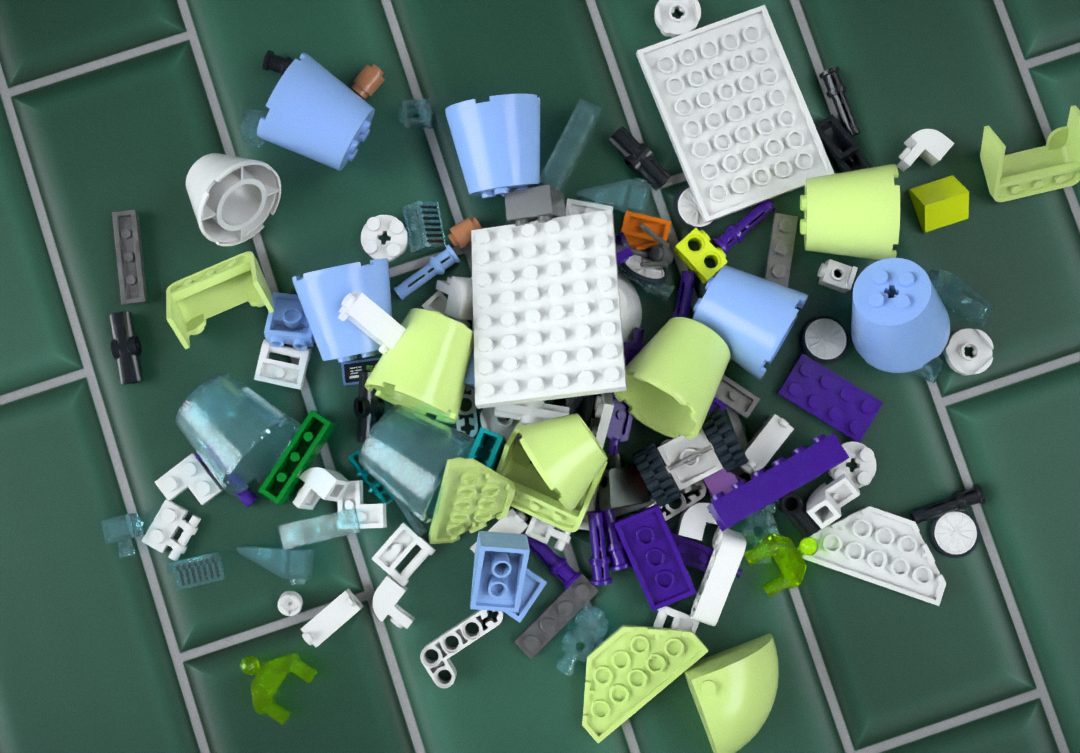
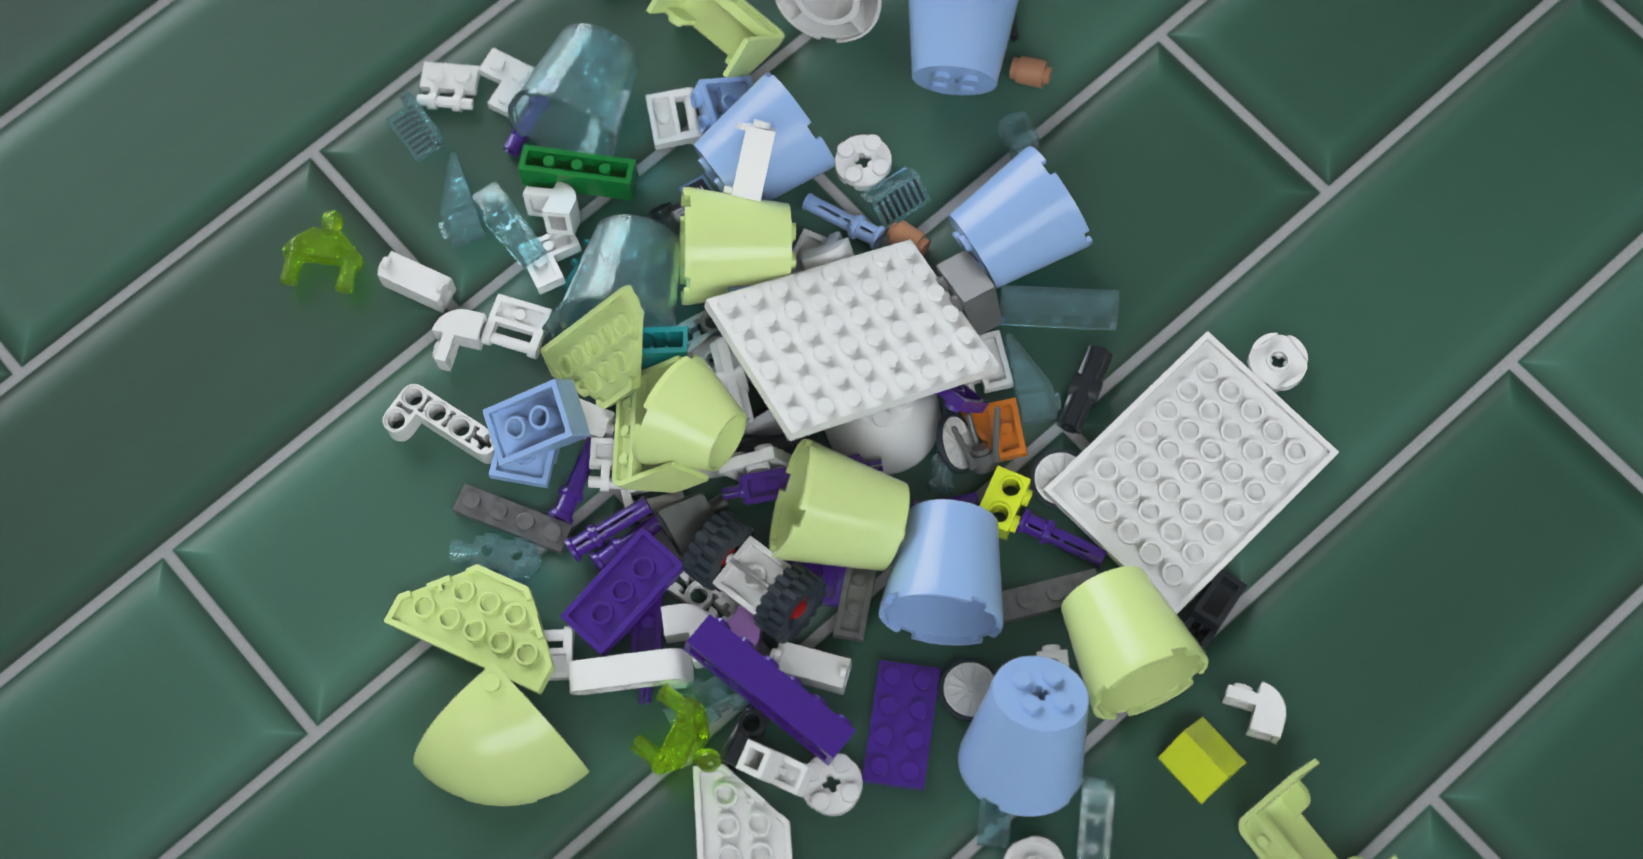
camera: 75 degrees right, 15 degrees down
(122, 530) = (427, 37): clear light blue brick -> none
(290, 603) = (415, 234): white tile -> none
(835, 91) = (1277, 579): black pin -> none

